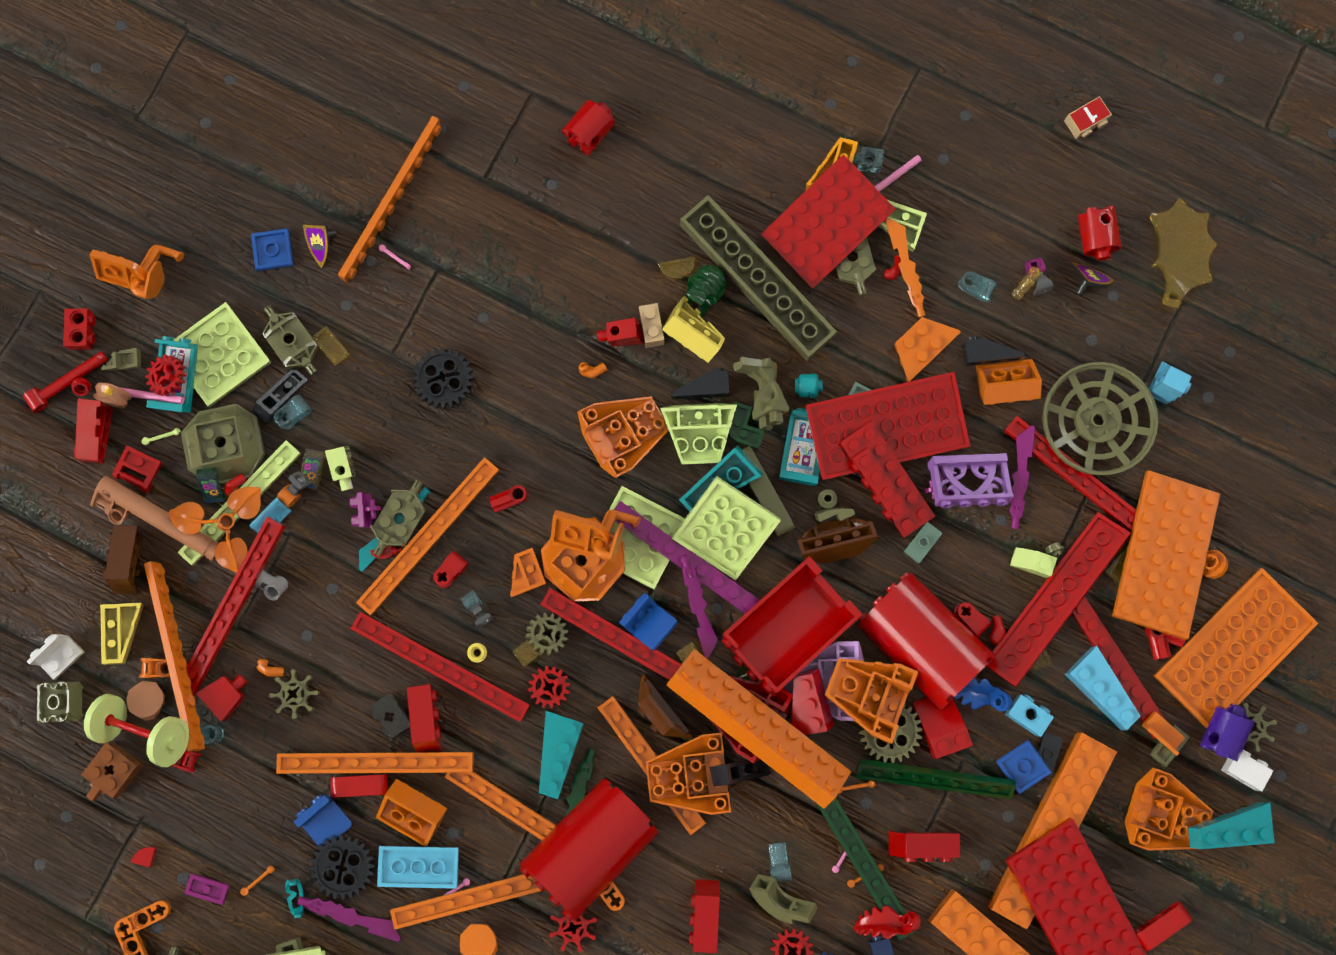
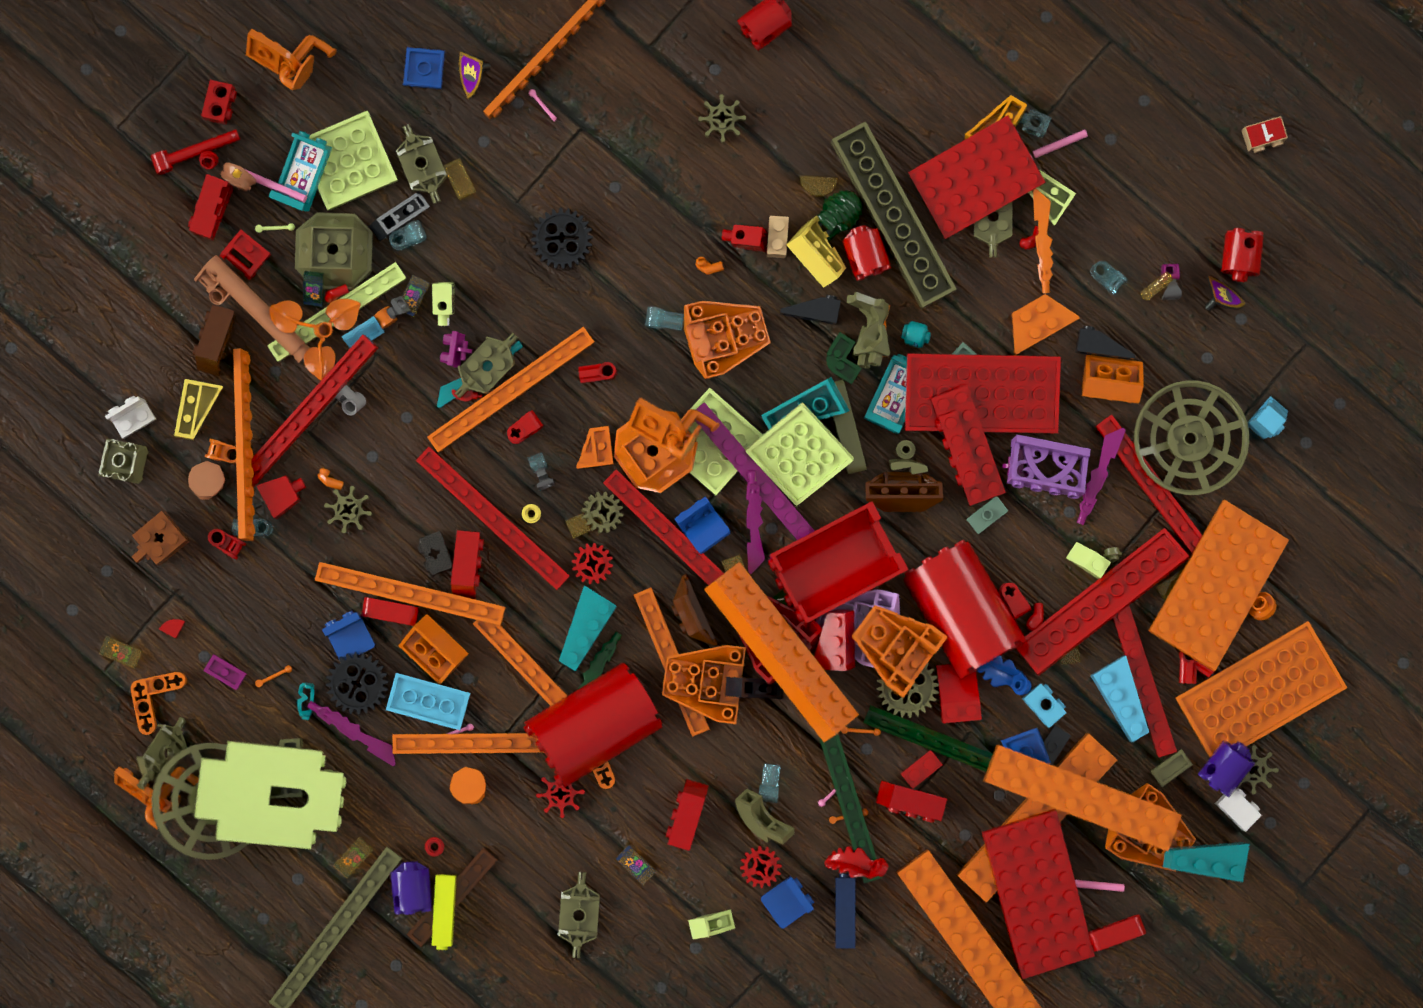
camera: 15 degrees right, 5 degrees up
(97, 895) = (120, 652): none -> clear yellow tile
(124, 360) = (255, 143): olive slope -> none
(165, 375) = (297, 162): red gear -> none
(165, 742) = (168, 488): yellowish green piece -> none
(555, 431) = (659, 319): none -> clear light blue piece
(562, 227) = (729, 118): none -> olive gear
(699, 430) = (798, 352): yellowish green wedge -> none
(740, 318) = (866, 252): none -> red cylinder
(925, 810) = (921, 769): none -> red plate
(1095, 799) = (1082, 797): none -> orange brick
(1133, 881) = (1099, 885): none -> bright pink bar
(1163, 732) = (1167, 753): orange panel -> none
(1182, 250) = (1322, 290): clear yellow animal -> none

